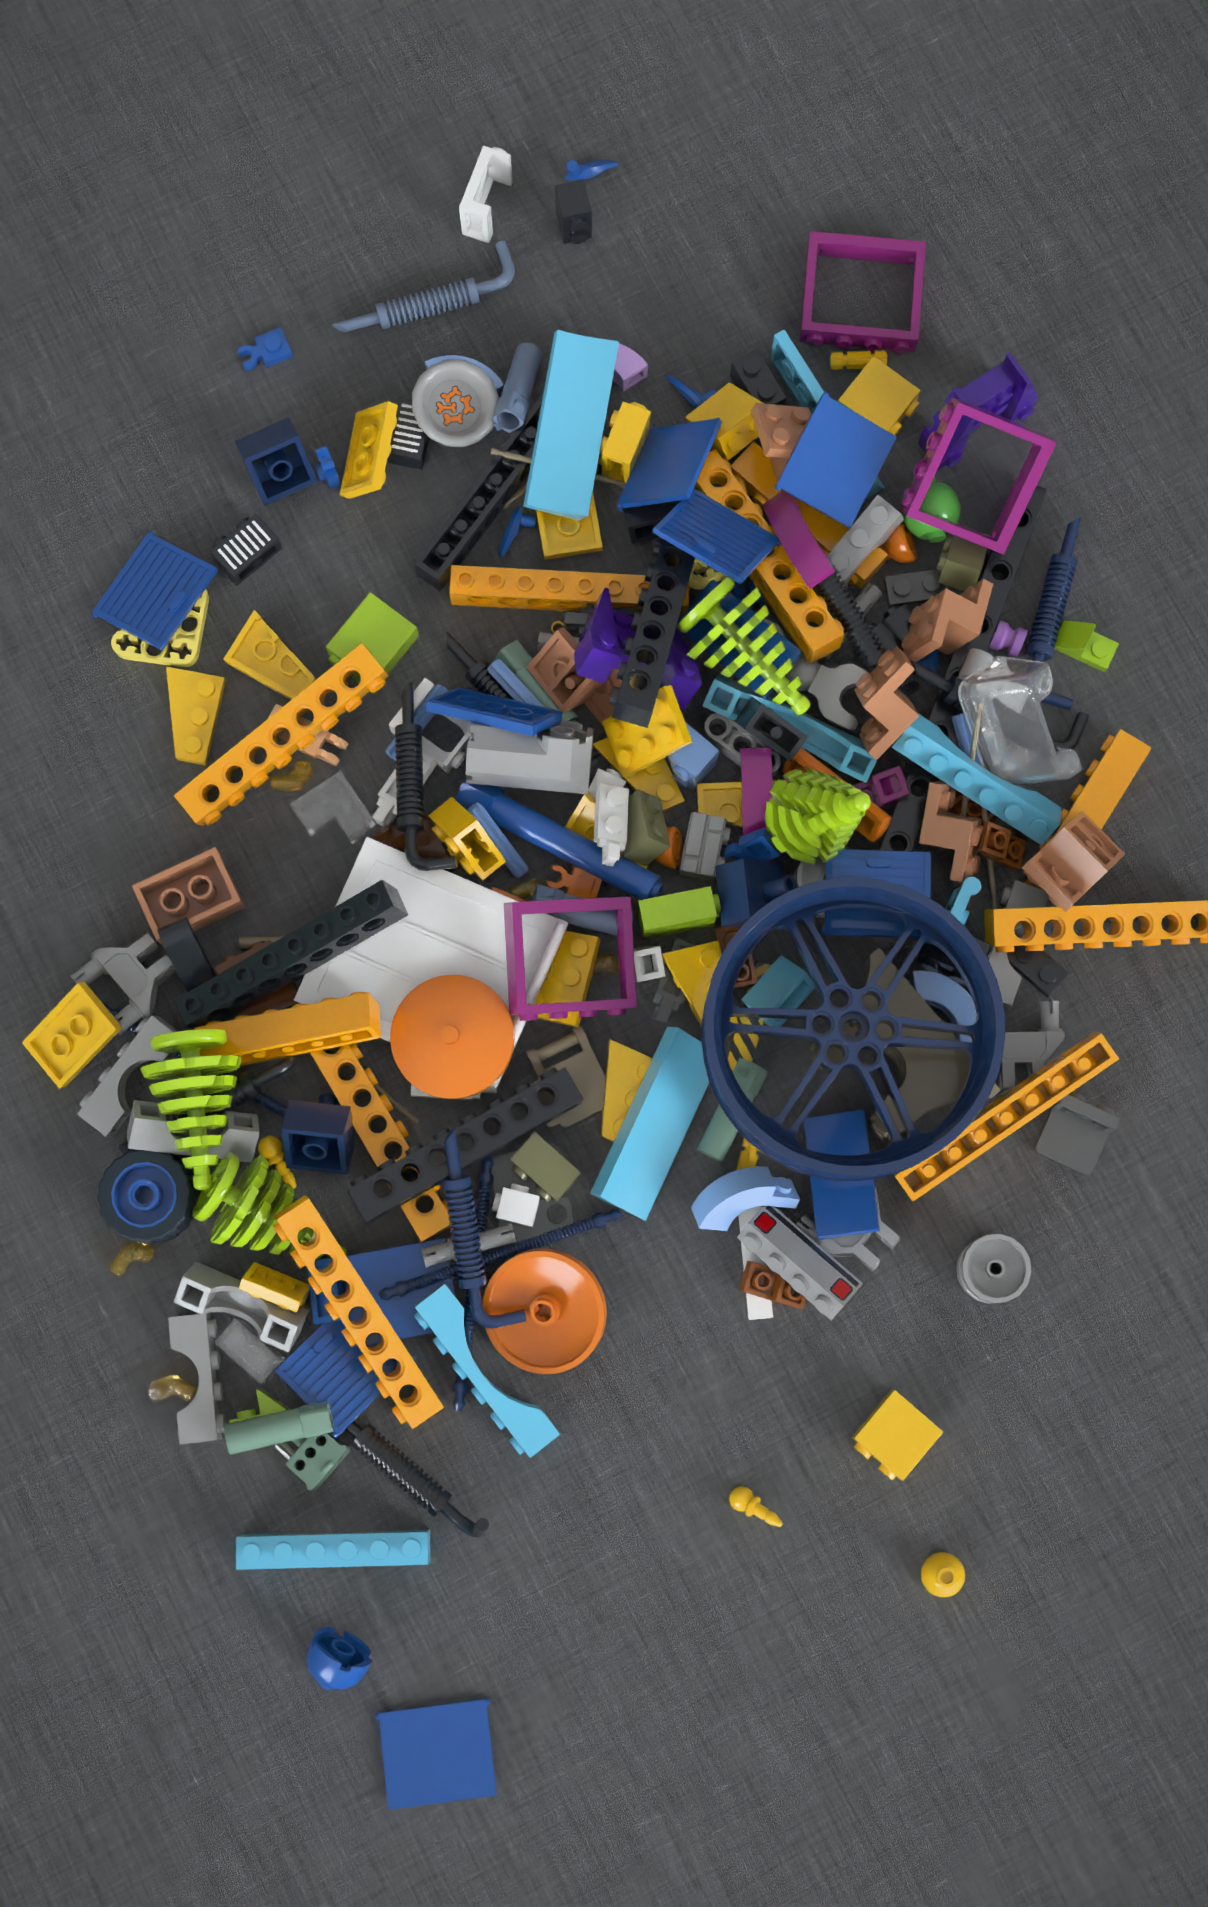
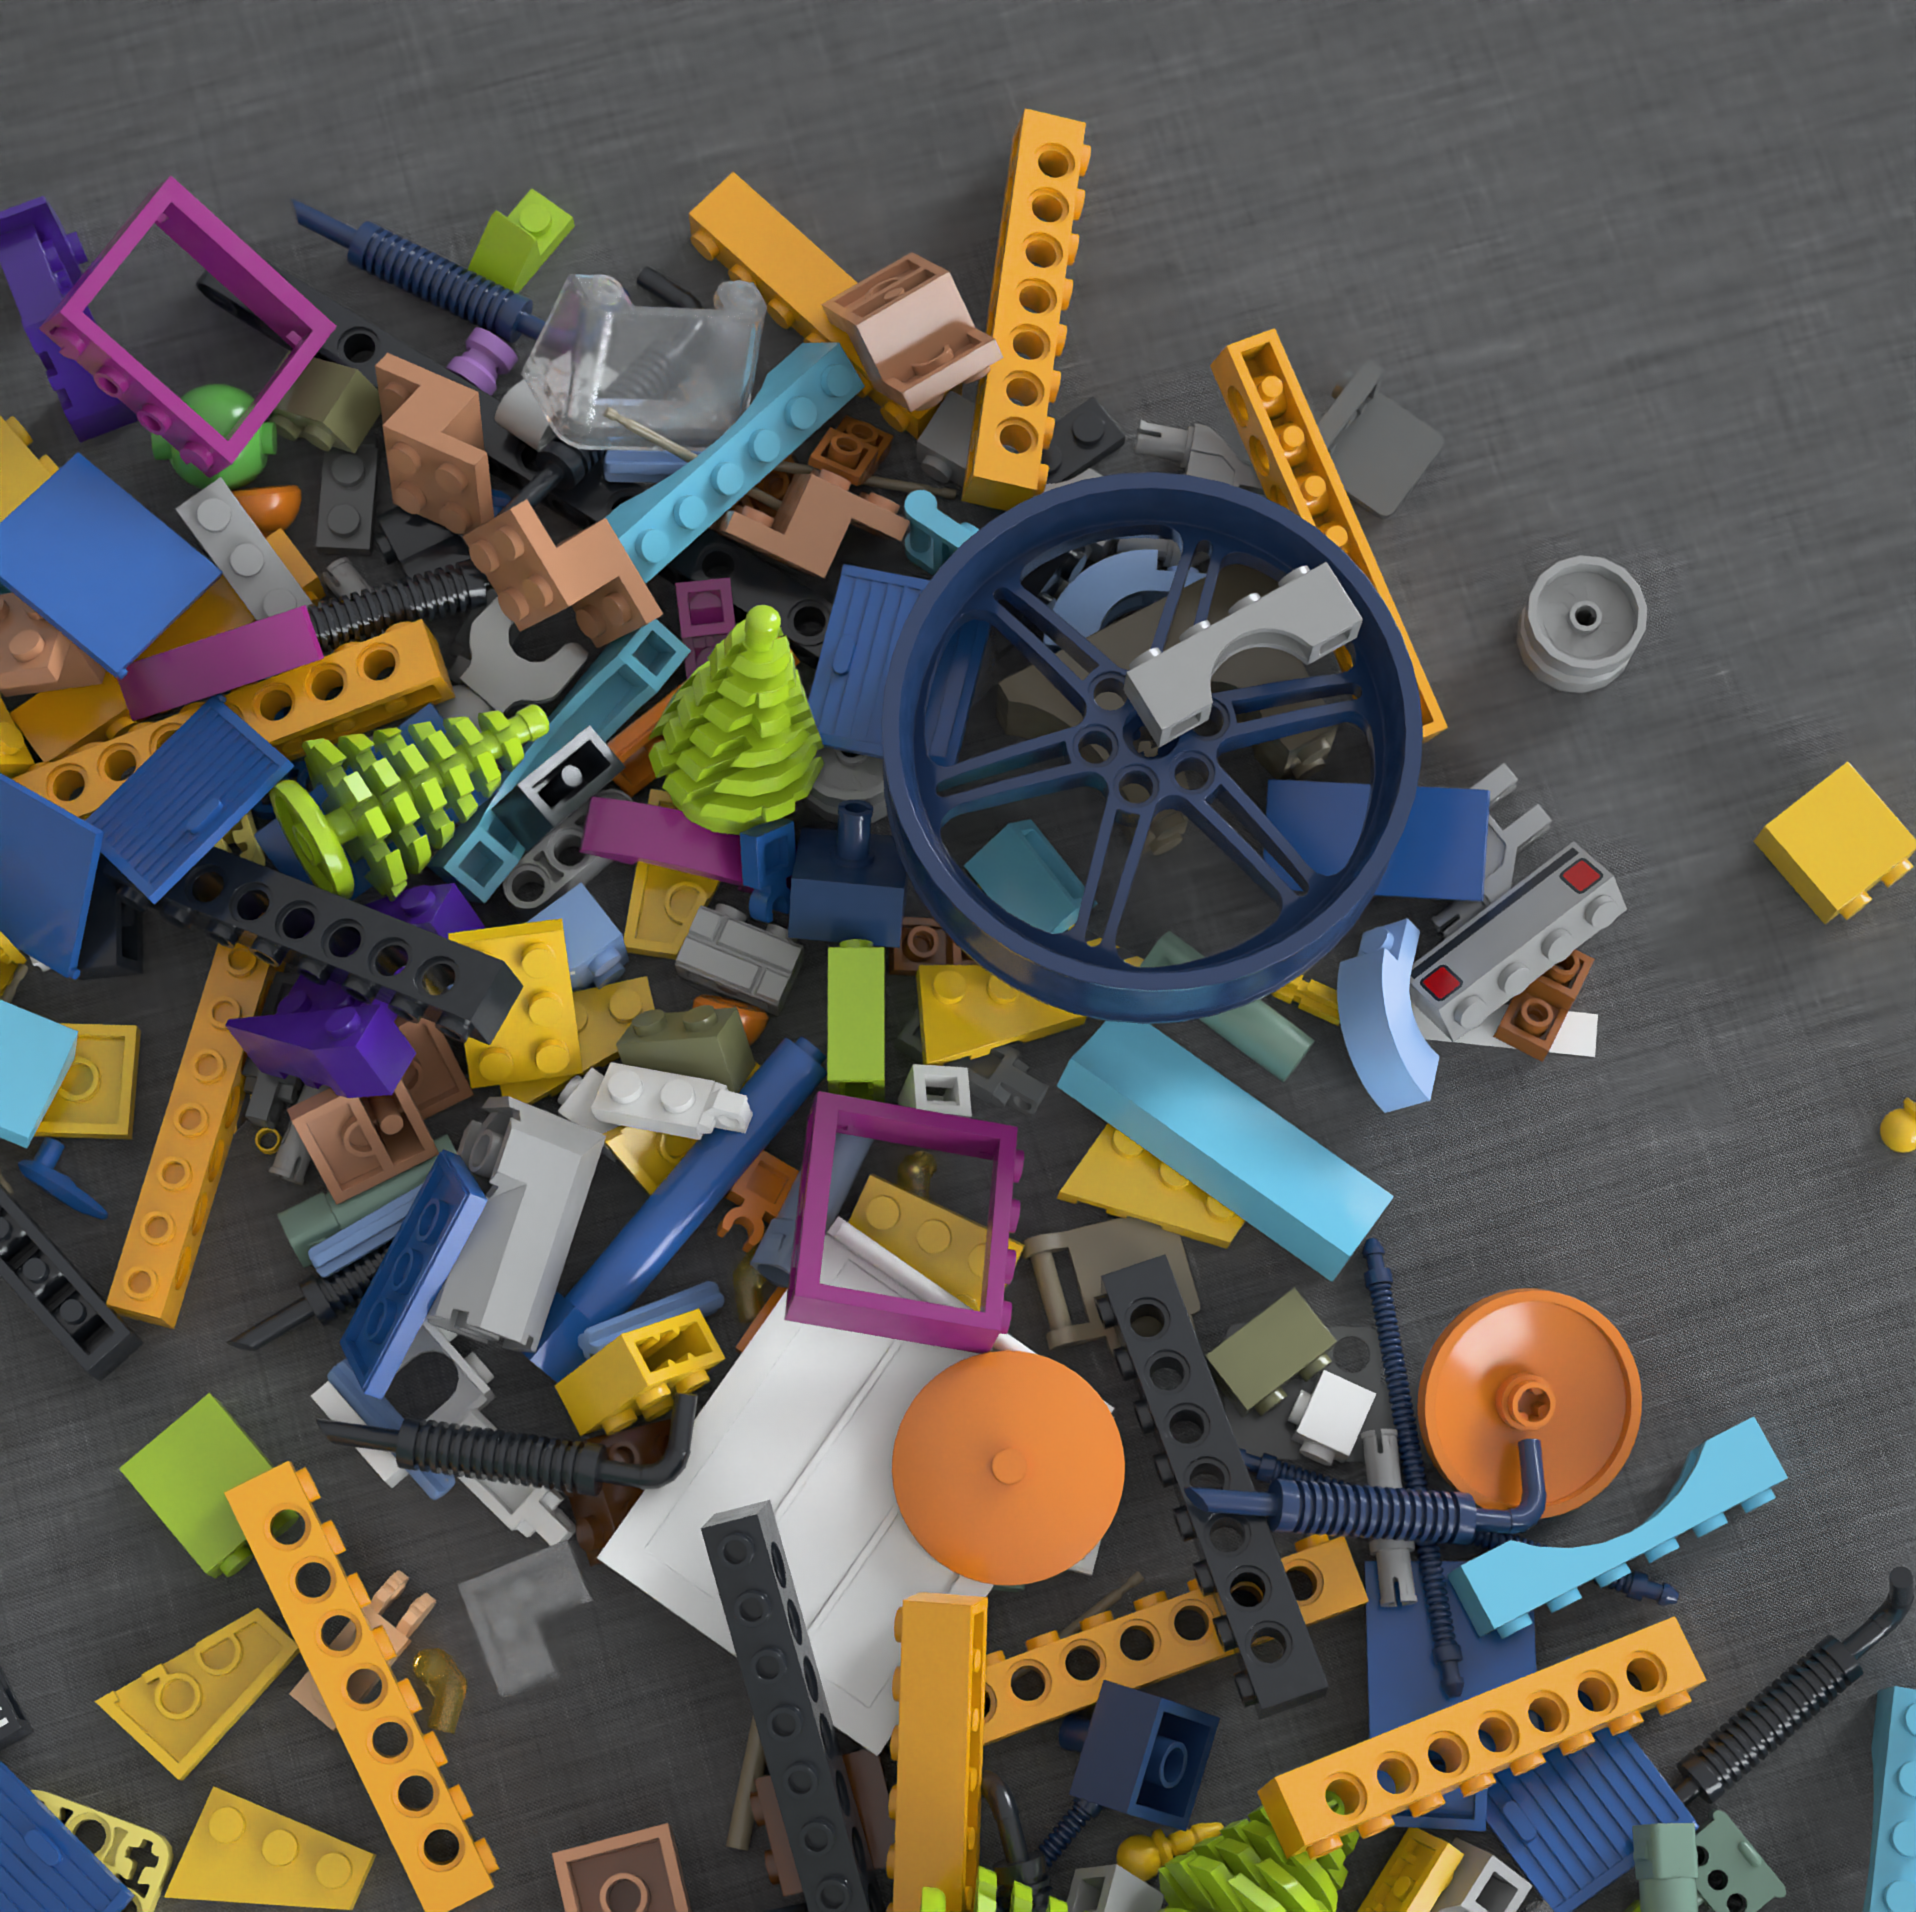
camera: 80 degrees left, 5 degrees down
(932, 1092) = (1302, 617): none -> light grey arch

